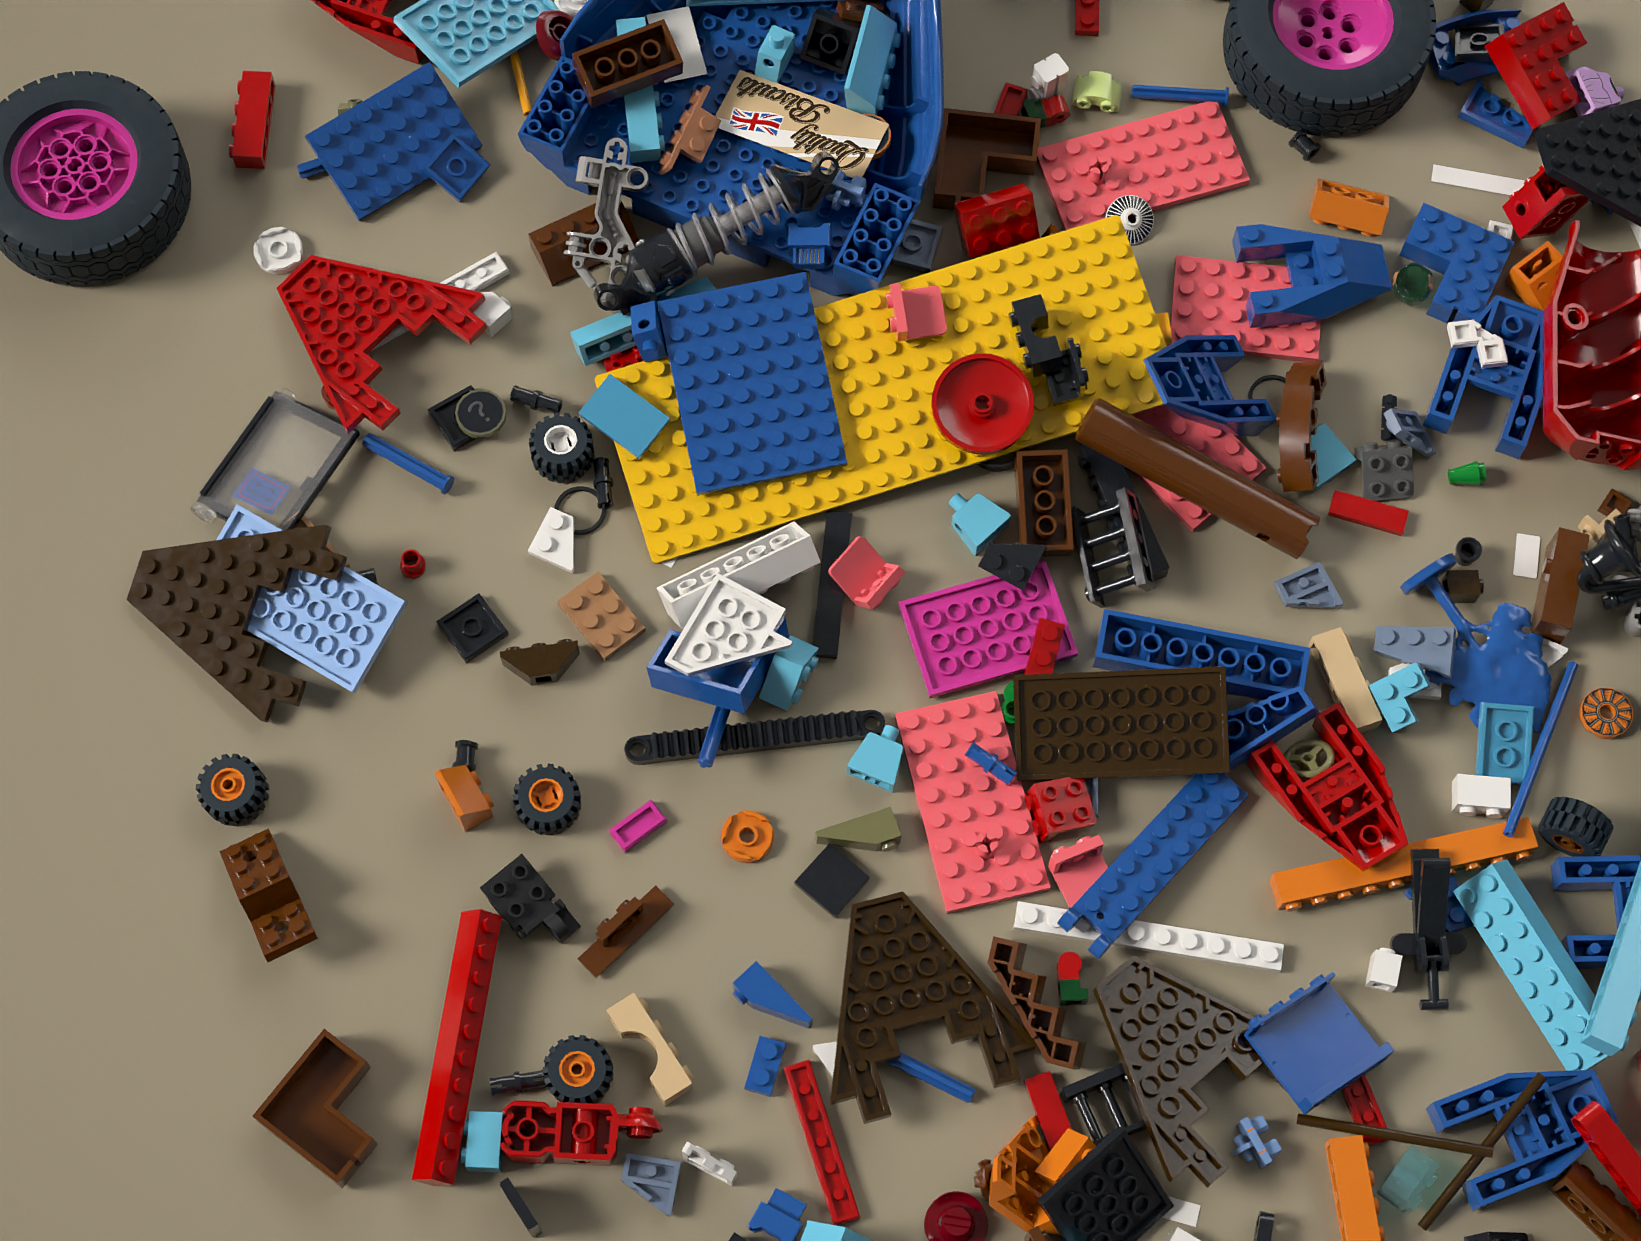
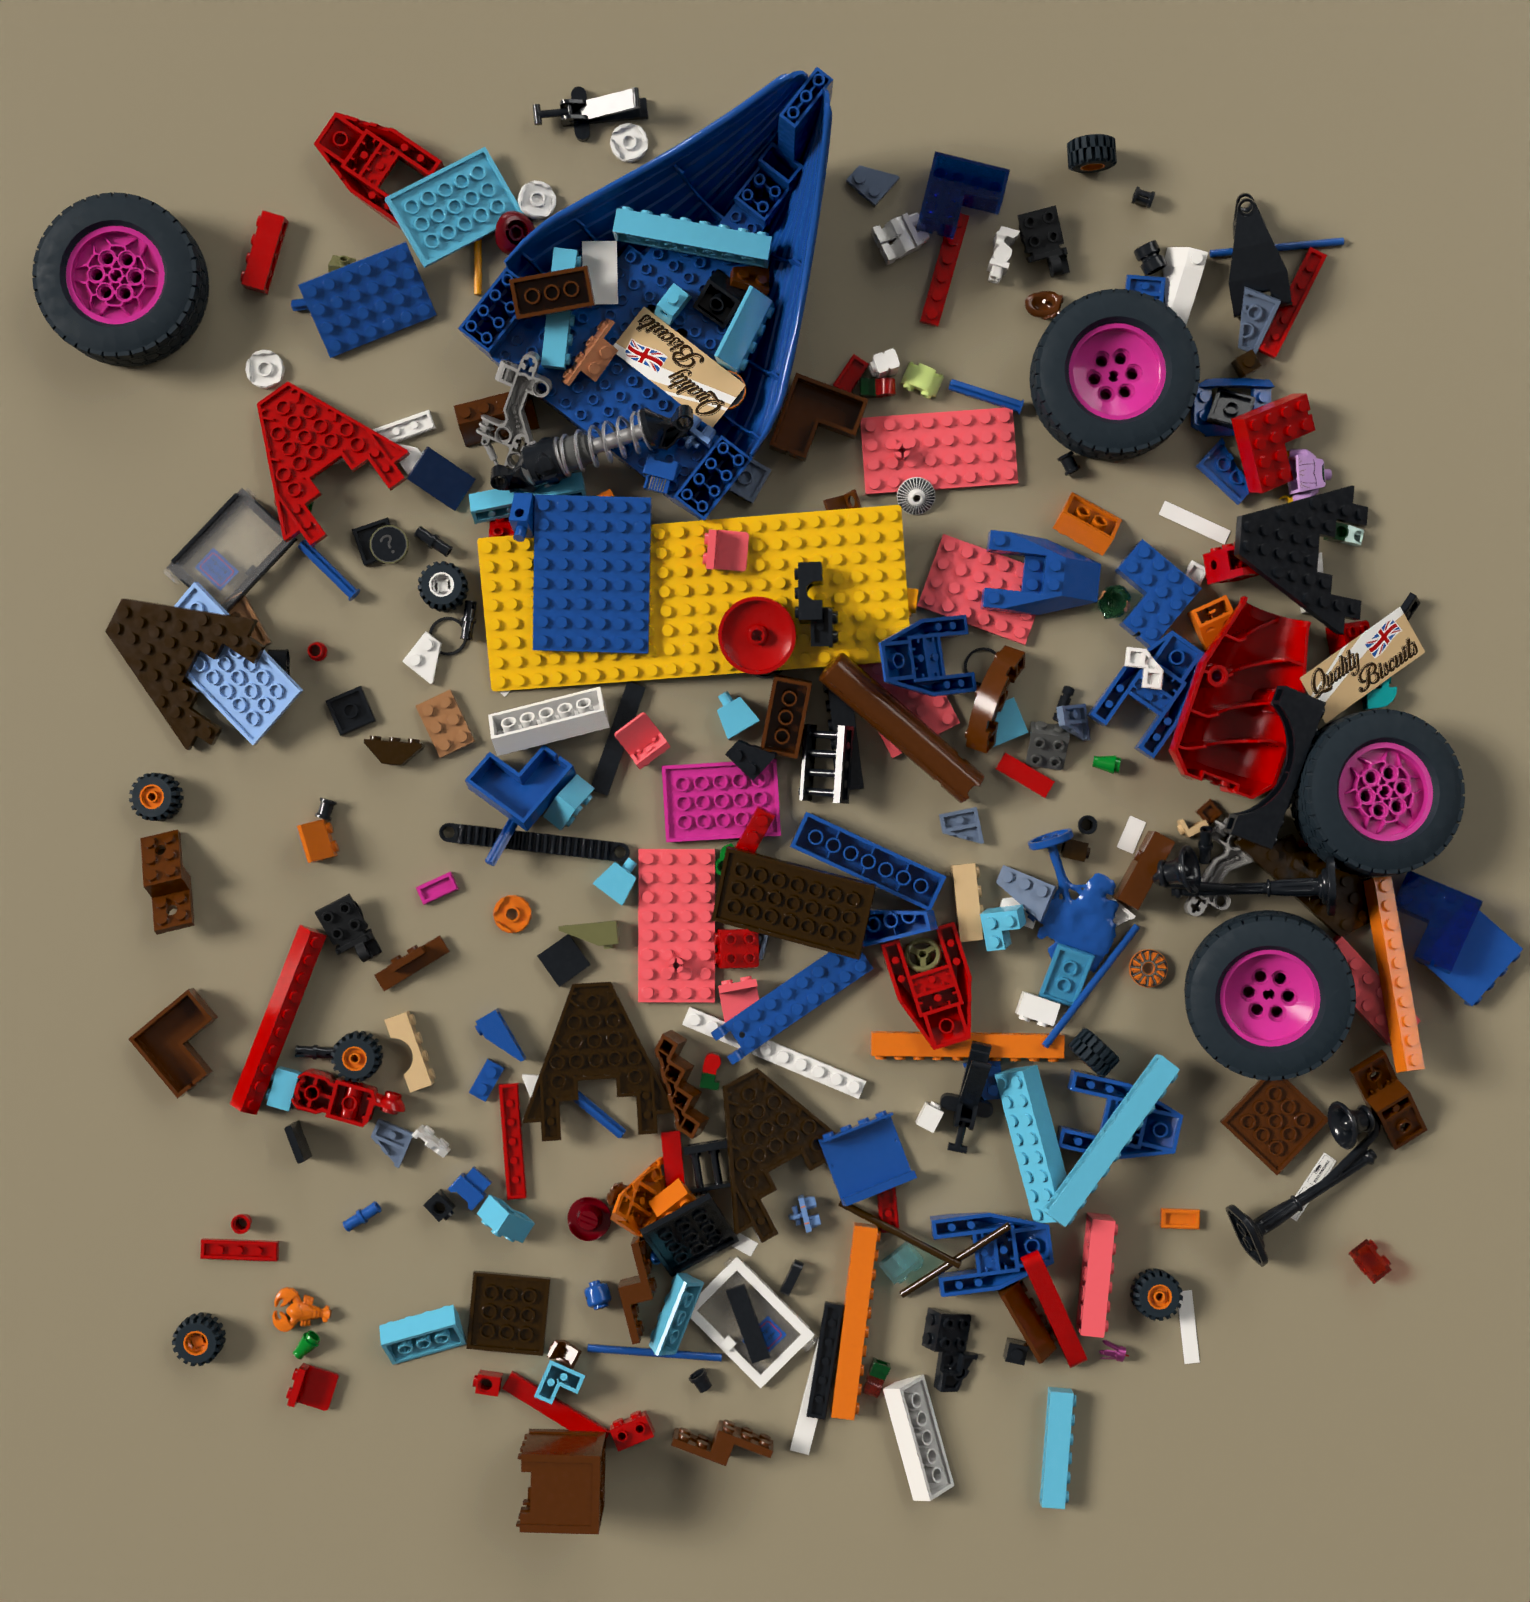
camera: 15 degrees right, 20 degrees up
(456, 167) = (411, 331): blue tile -> none
(530, 322) = (441, 478): none -> dark blue tile
(547, 799) = (376, 856): black wheel -> none
(624, 416) = (492, 577): dark azure tile -> none
(727, 629) = (527, 769): white wing -> none
(990, 763) = (694, 906): blue pin -> none
(997, 220) = (812, 477): red brick -> none

